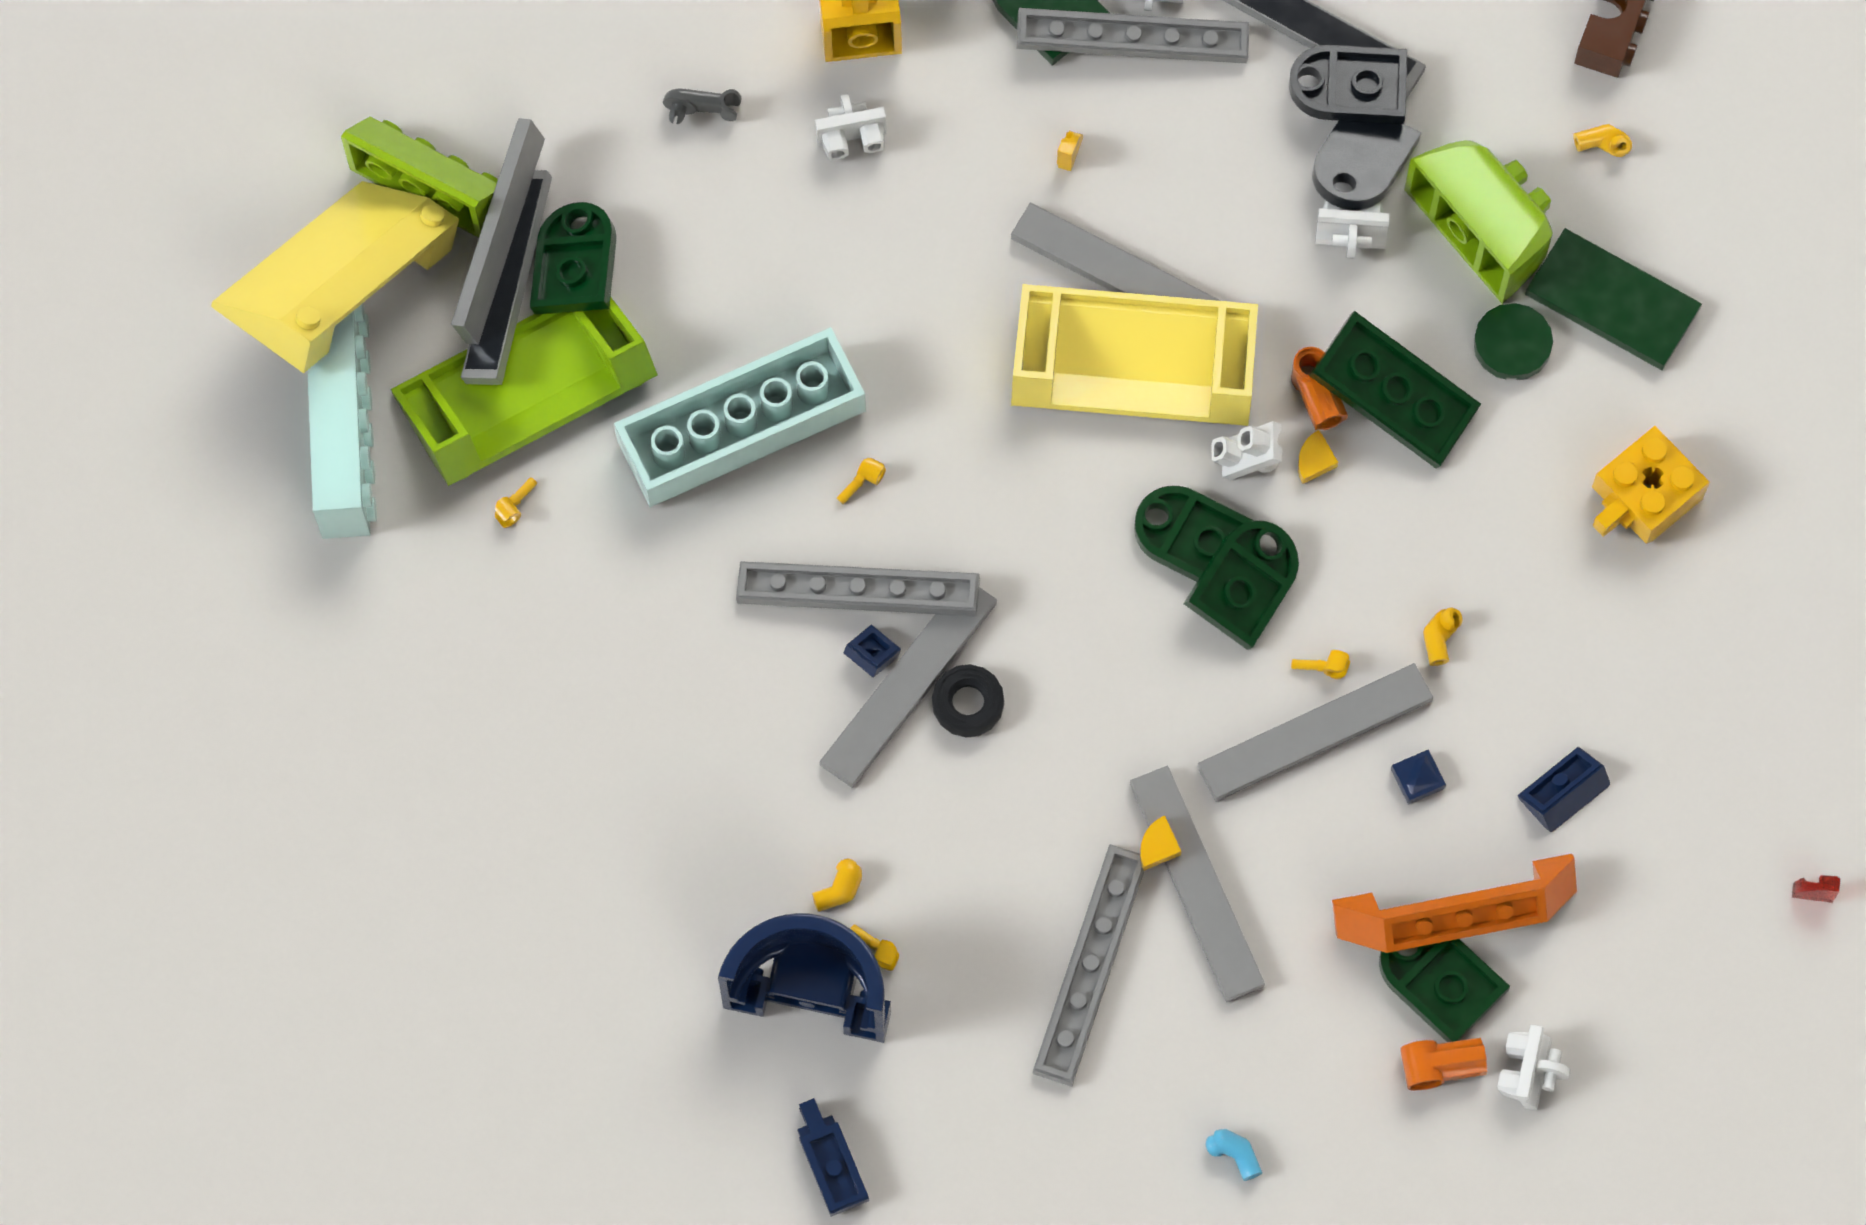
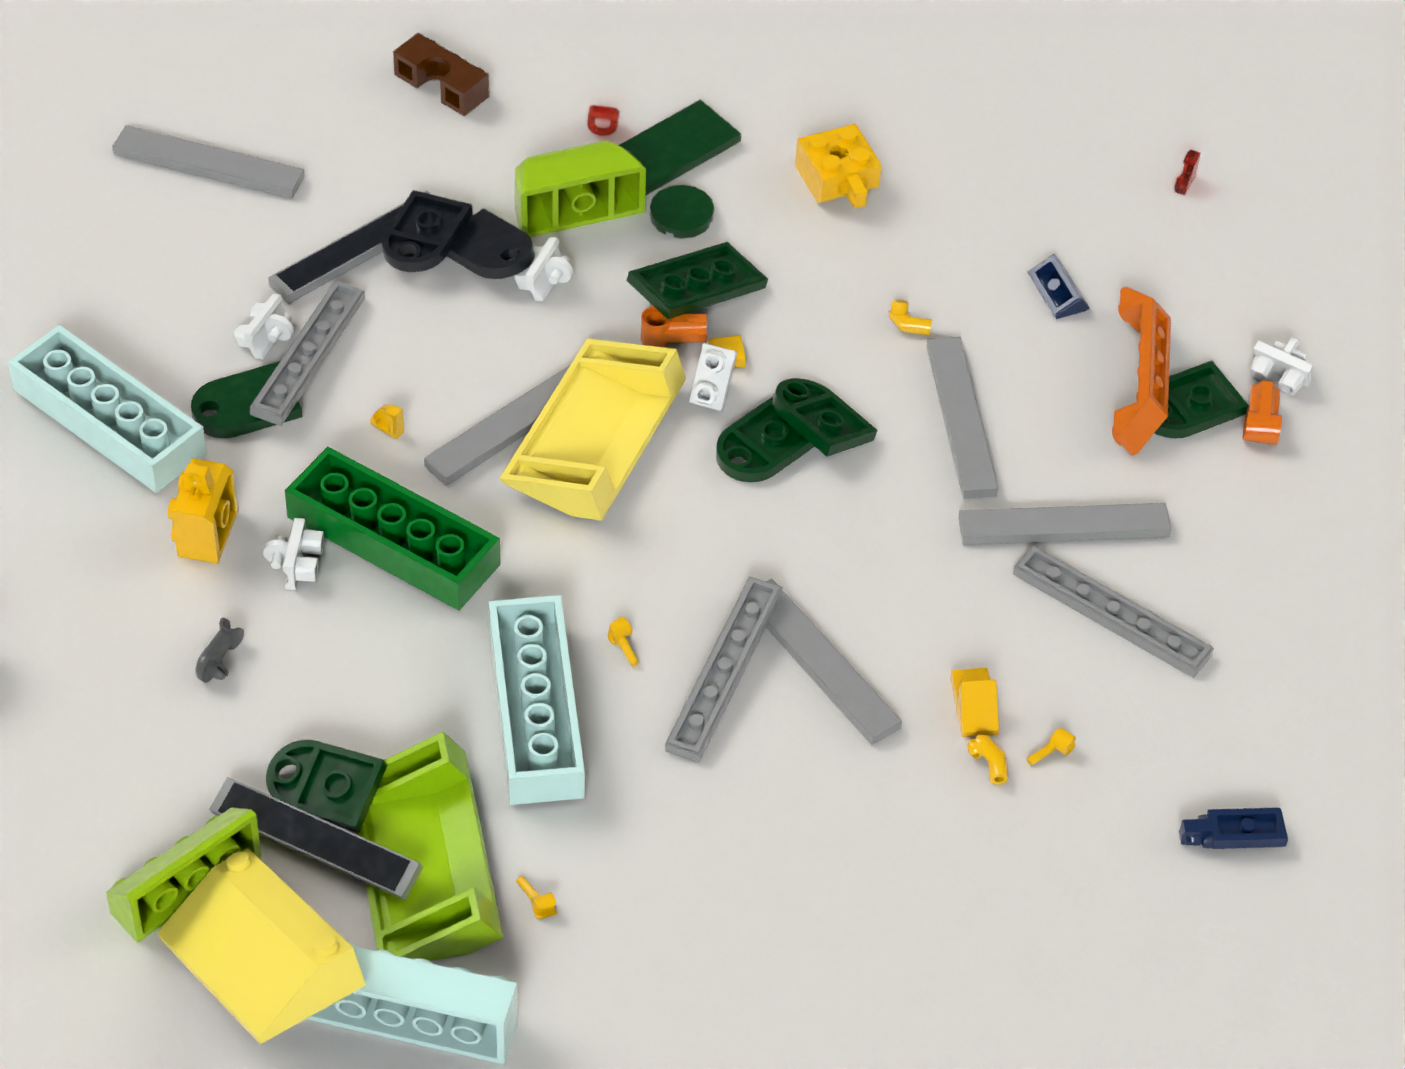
camera: 75 degrees left, 20 degrees down
(498, 231) = (276, 822): light grey tile -> none
(811, 971) = (1070, 785): dark blue piece -> none
(872, 651) = (785, 674): dark blue tile -> none
(909, 851) = (975, 701): none -> yellow slope
(911, 205) = (393, 528): none -> green brick
(973, 677) = (854, 606): black tyre -> none
(1158, 844) = (1028, 529): yellow tile -> none
(1236, 1147) = (1301, 559): medium azure arm -> none
(1334, 667) = (910, 387): yellow hand -> none
(1418, 776) = (1020, 366): dark blue tile -> none
(1604, 137) = (539, 112): yellow arm -> none
(1624, 209) = (605, 114): none -> clear red tile

